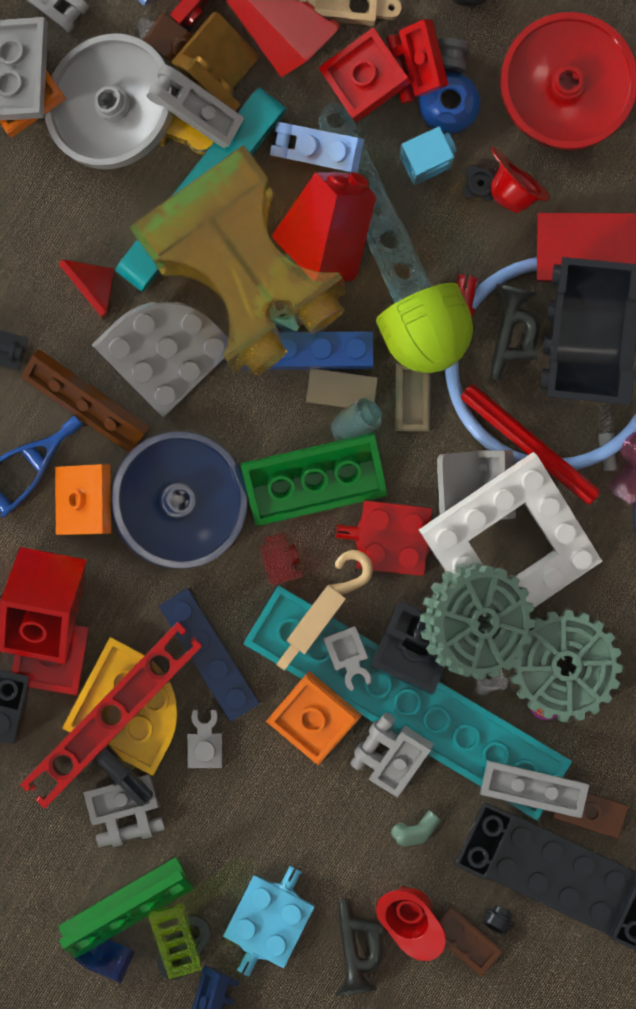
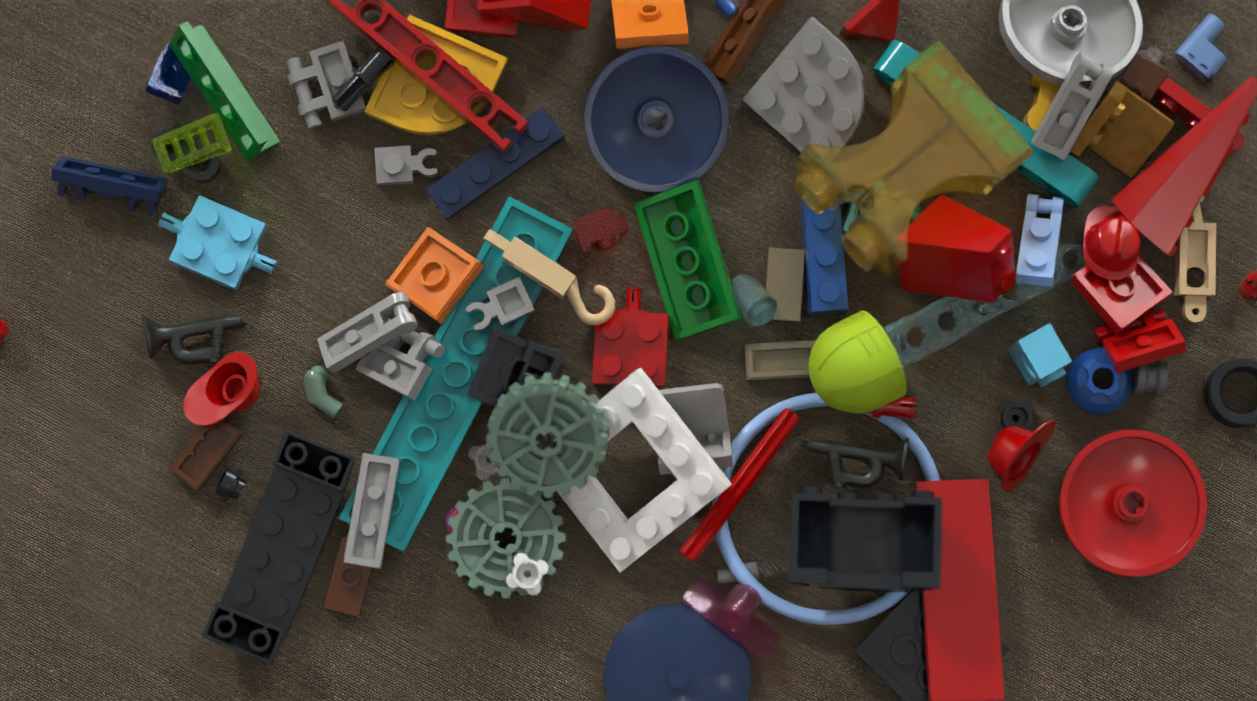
camera: 80 degrees right, 5 degrees down
(323, 81) = (1110, 243): none -> red piece
(364, 785) = (367, 331): none -> light grey plate
(593, 650) = (522, 564): none -> white plate

